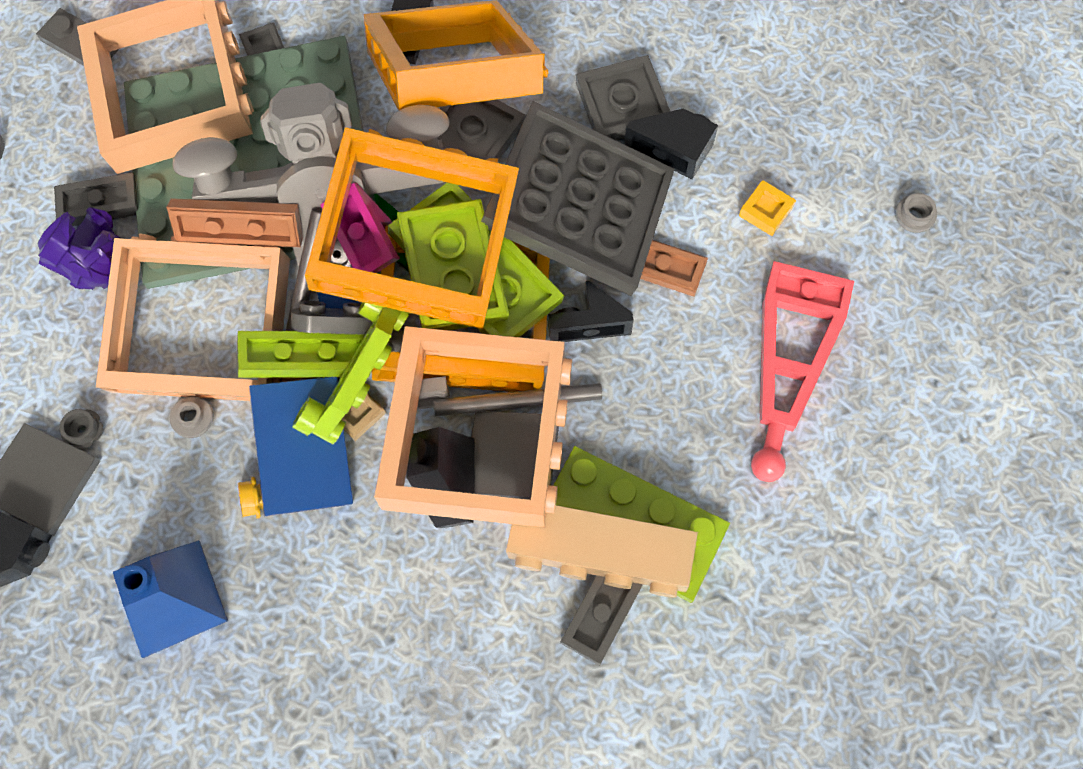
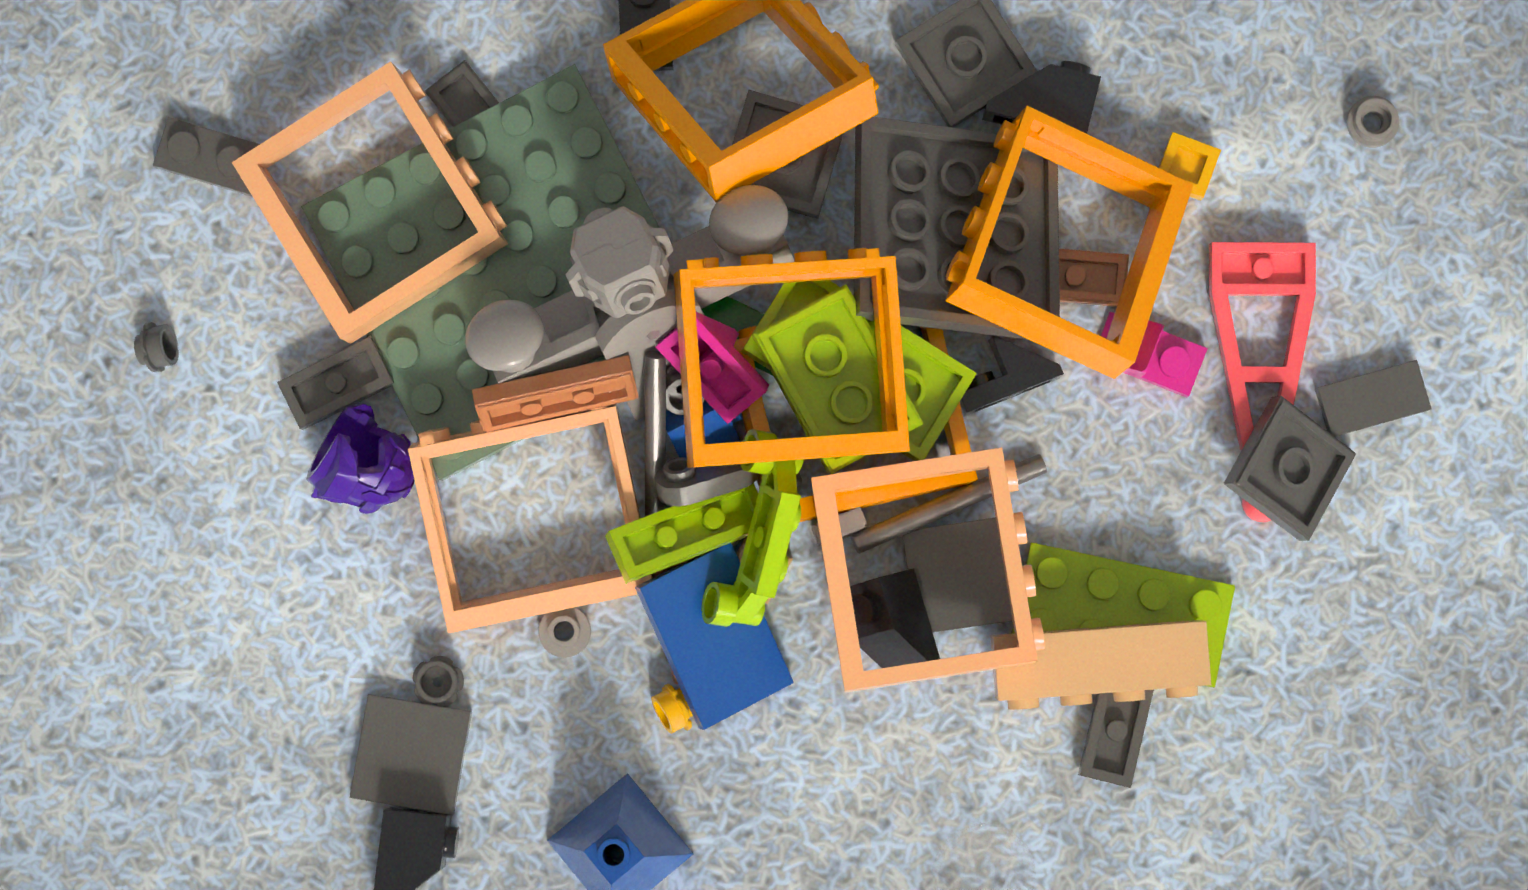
camera: 15 degrees left, 15 degrees up
(692, 177) = (1103, 164): none -> light orange window
(701, 329) = (1165, 359): none -> dark pink slope
(796, 441) = (1290, 468): none -> dark grey tile
(875, 410) = (1373, 398): none -> dark grey tile

